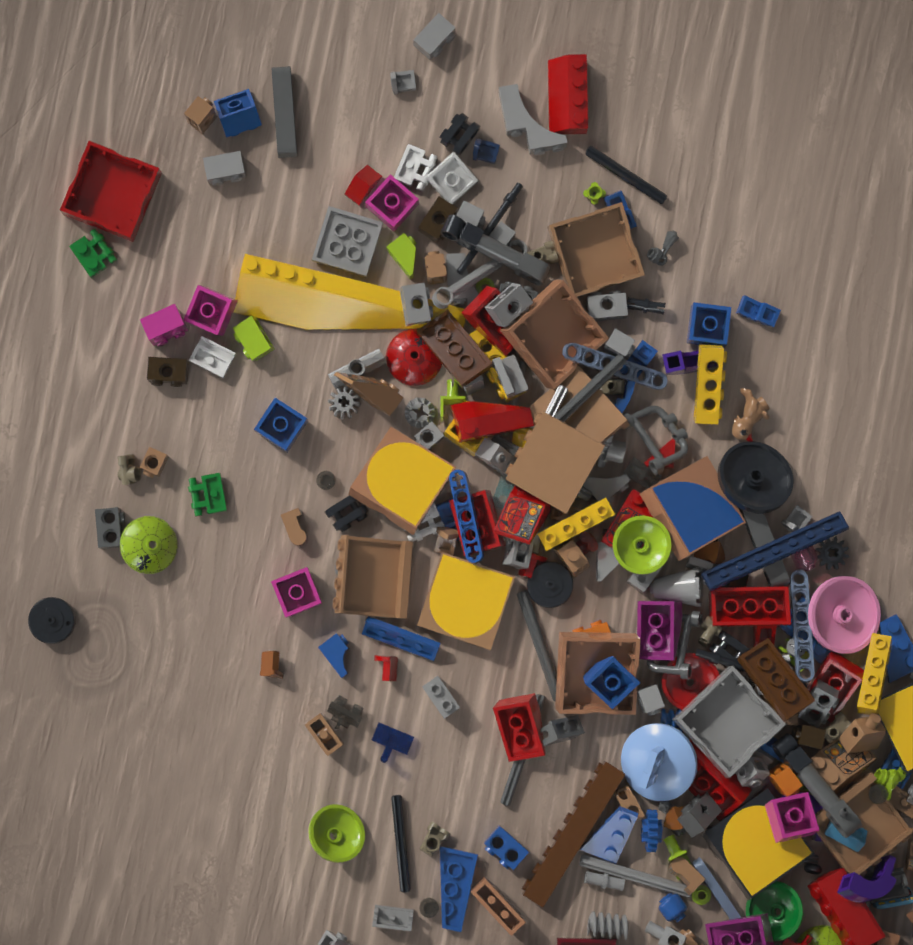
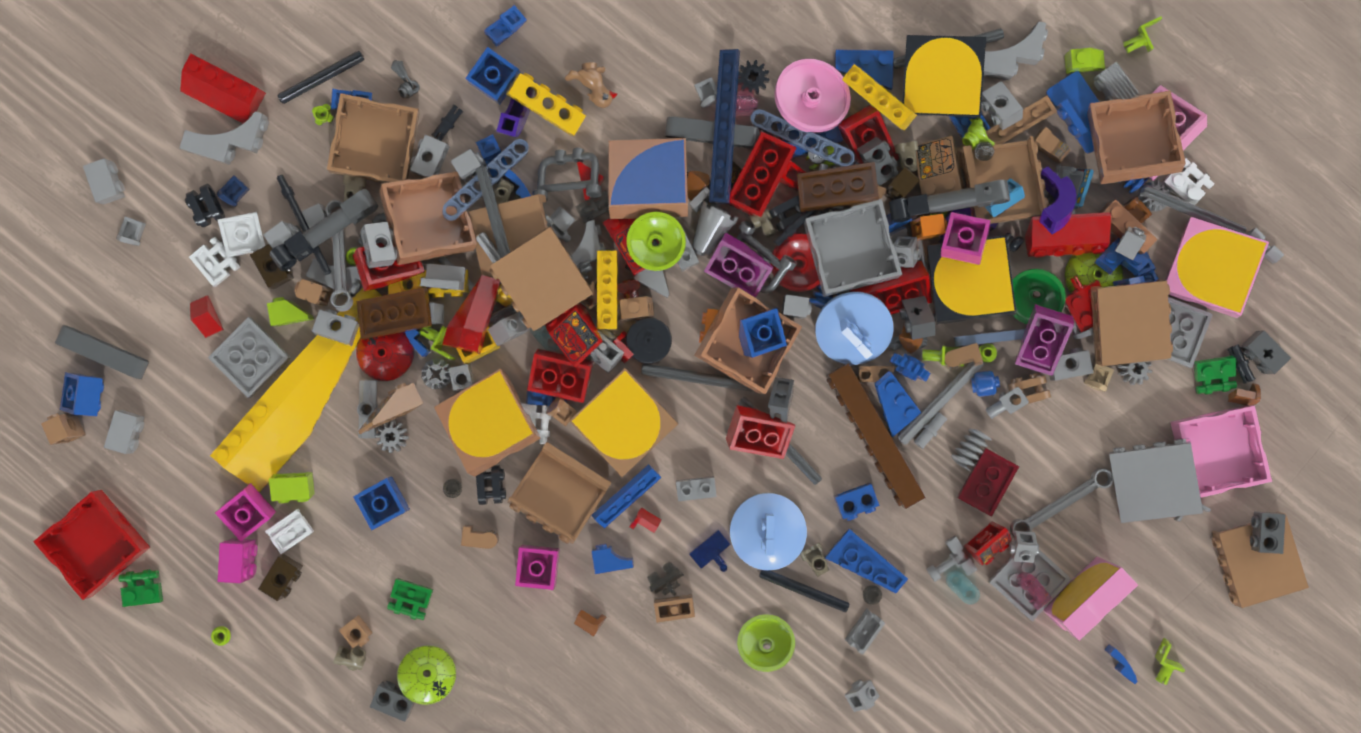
camera: 60 degrees left, 5 degrees up
(81, 345) = (216, 638): none -> lime plate
(392, 202) = (234, 299): dark pink brick -> none
(436, 782) = (768, 531): none -> light blue bracket
(443, 374) = (418, 345): none -> blue slope
(460, 508) = (539, 382): blue beam -> none
(498, 906) = (903, 535): nougat brick -> none
(755, 477) = (650, 108): black dish -> none
(863, 734) = (925, 136): medium nougat torso -> none

